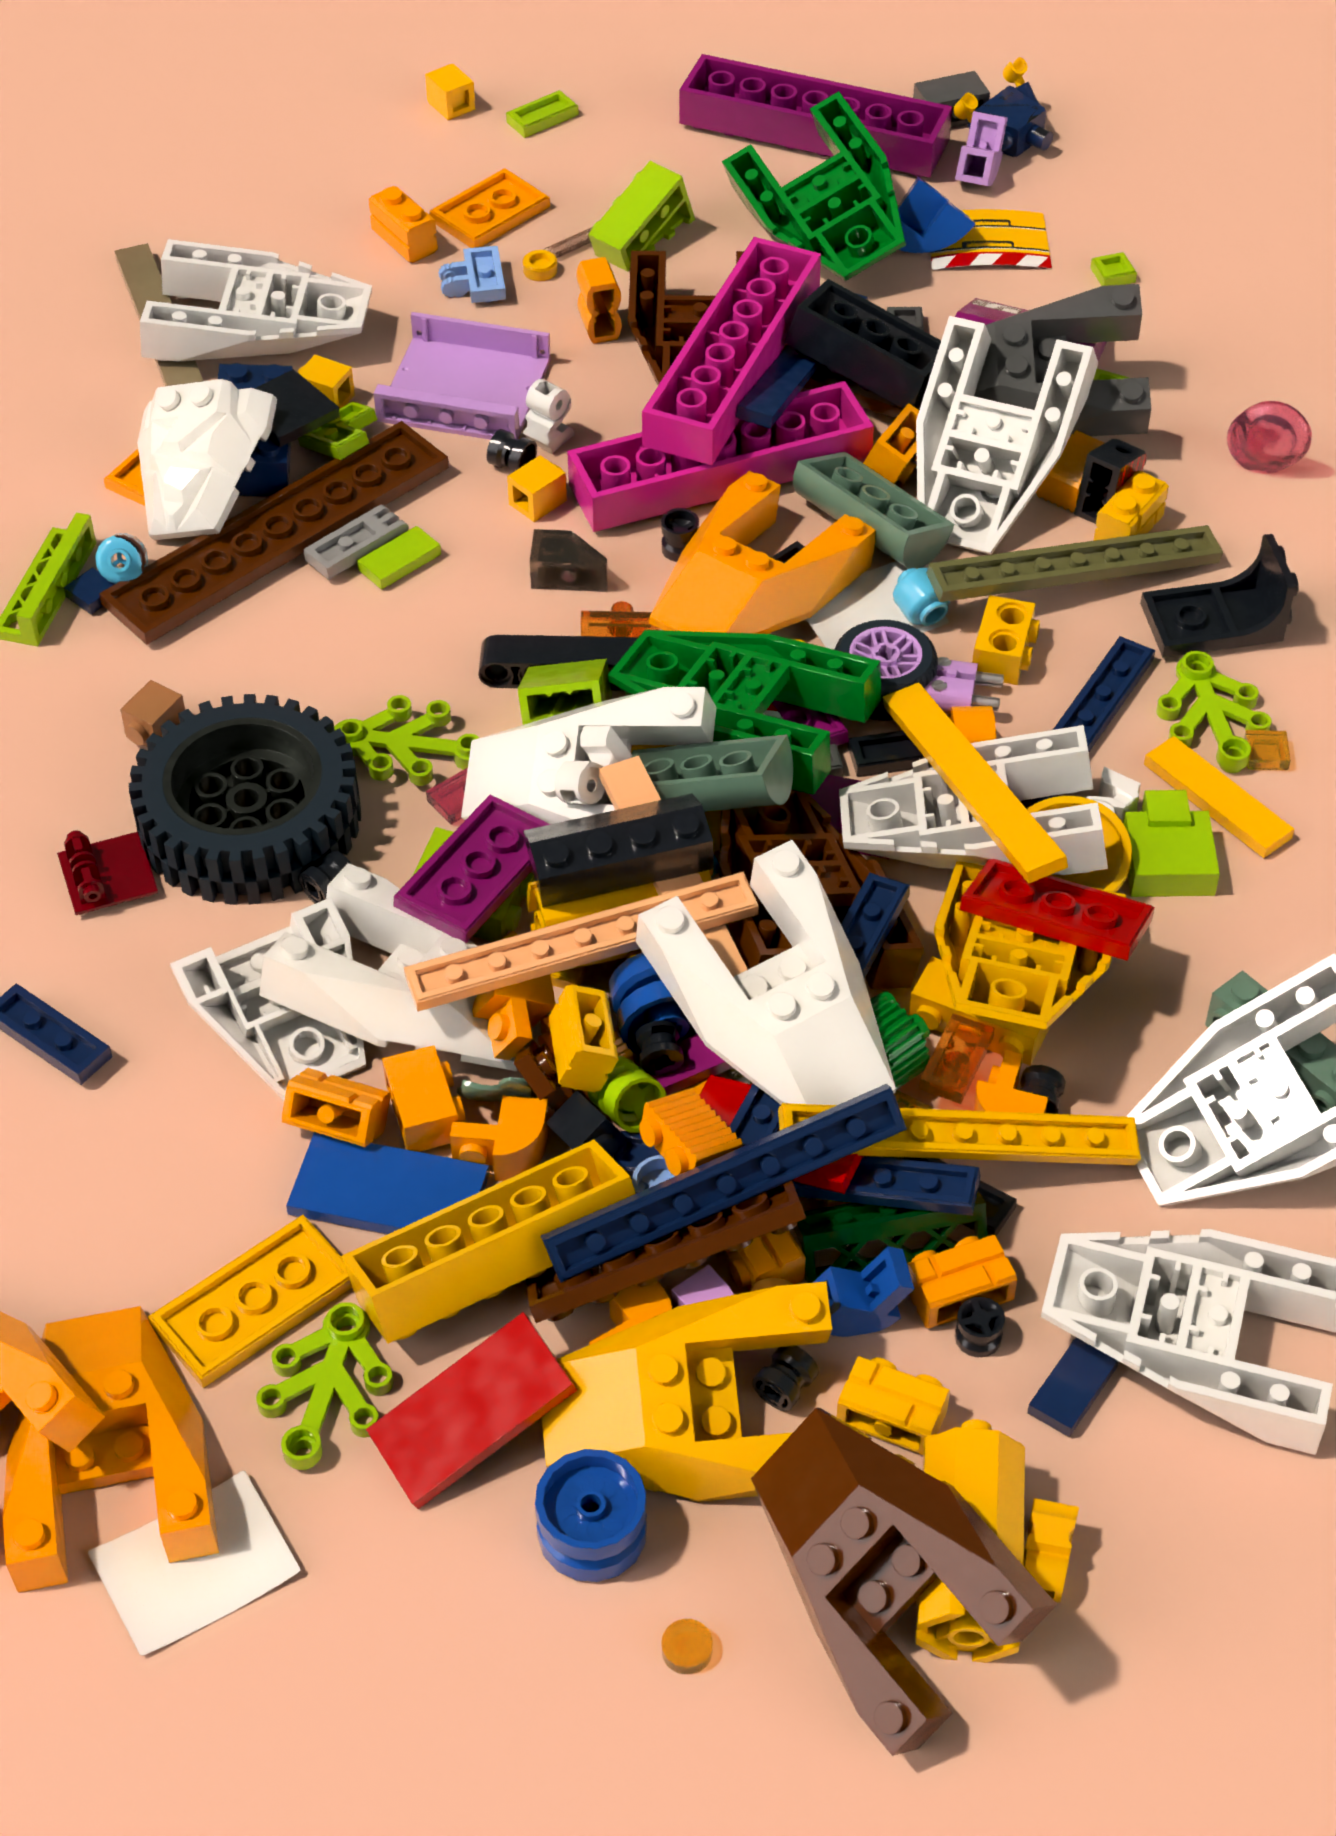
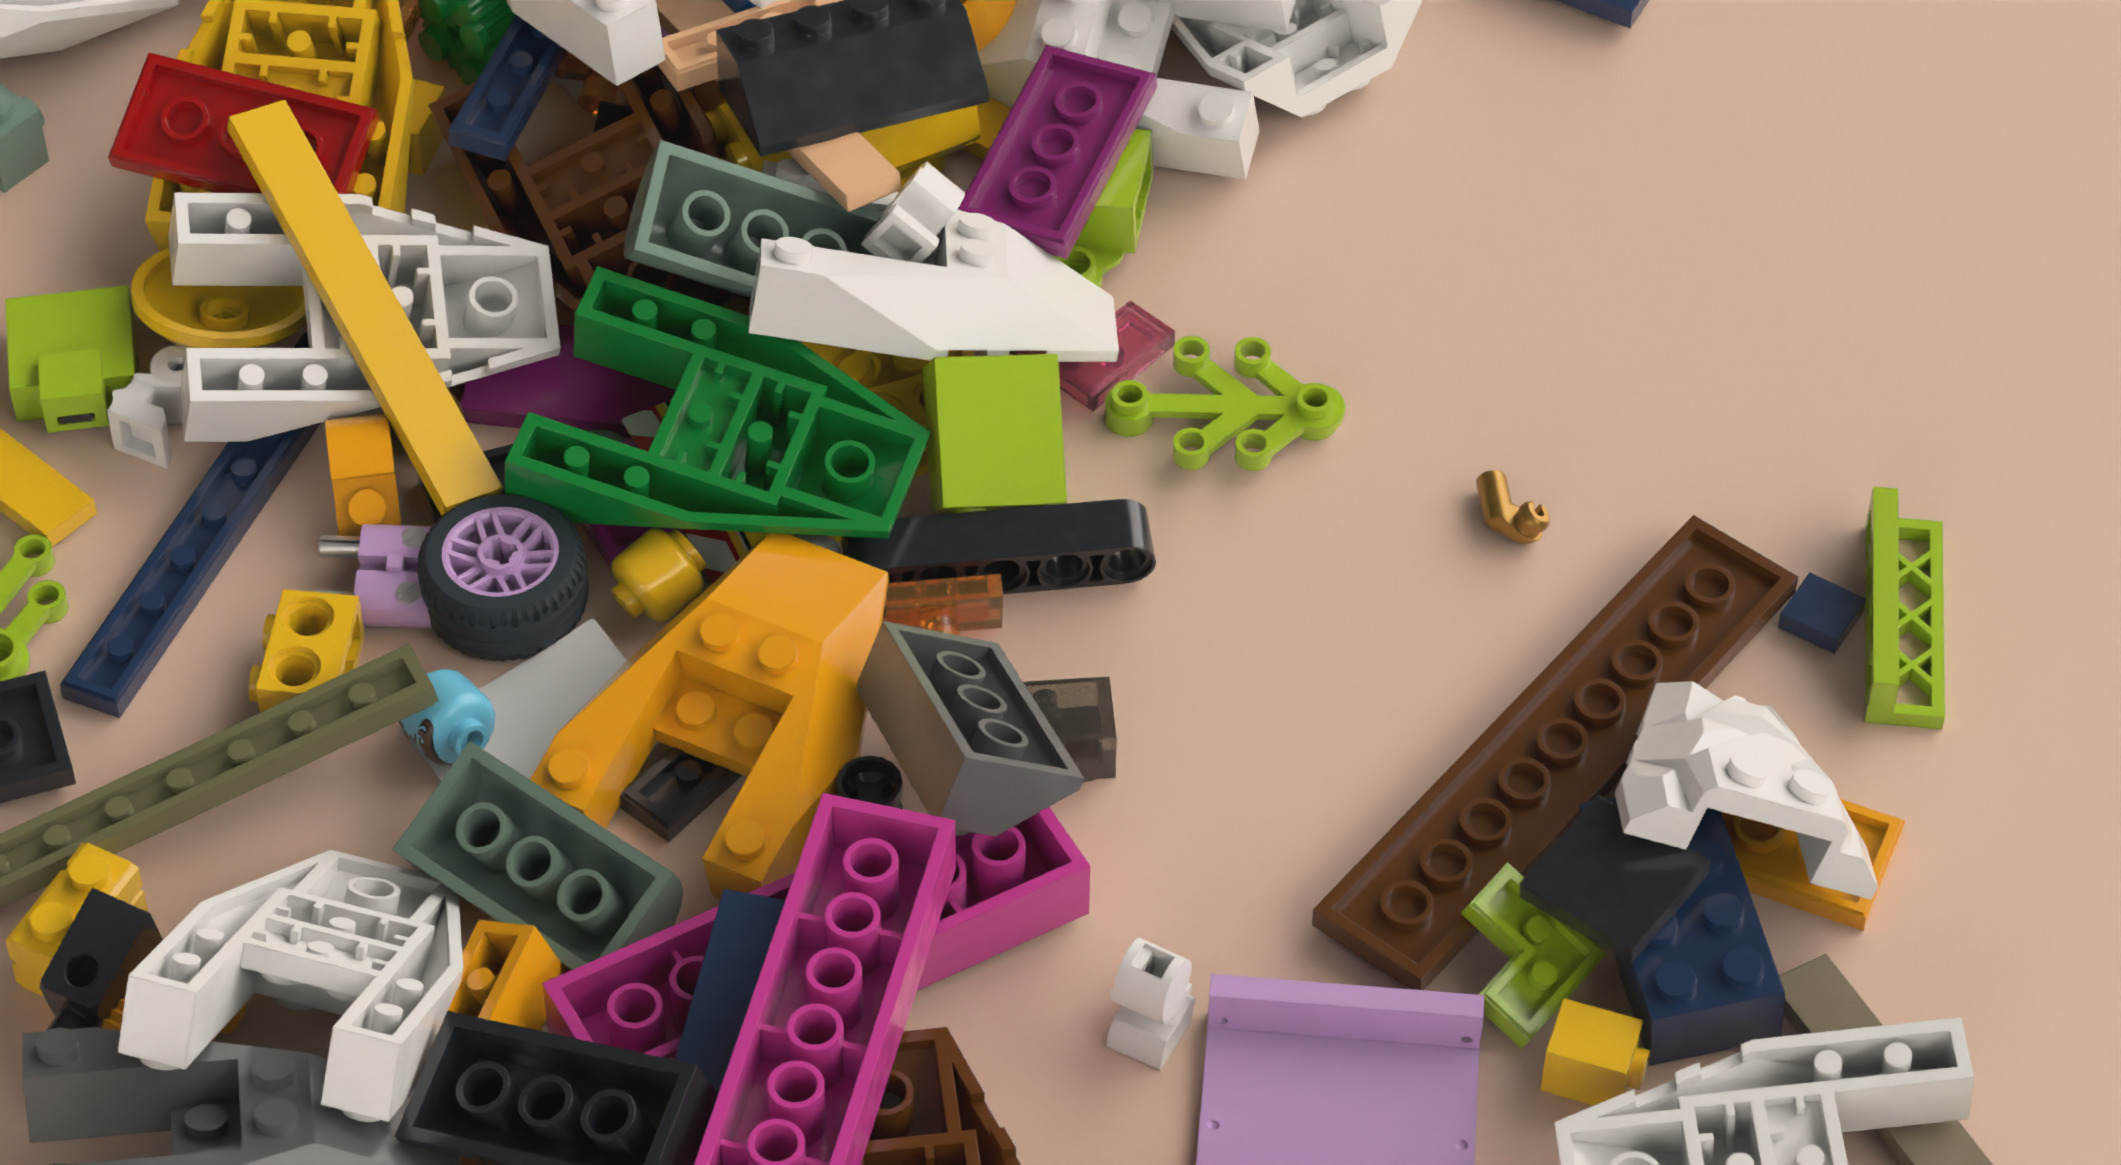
camera: 170 degrees right, 0 degrees up
(105, 871) = (1587, 180): dark red hinge -> none
(131, 548) = (1788, 631): medium azure head -> none
(150, 710) = (1619, 392): medium nougat brick -> none
(244, 797) = (1426, 264): black wheel -> none
(254, 660) = (1499, 513): none -> pearl gold arm
(316, 879) = (1279, 181): black wheel -> none
(353, 541) = (1422, 737): light grey hinge -> none
(399, 557) = (1341, 731): lime tile -> none
(509, 451) = (1208, 942): black wheel -> none
(537, 488) = (1138, 869): yellow brick -> none
(621, 503) = (964, 728): none -> dark grey slope

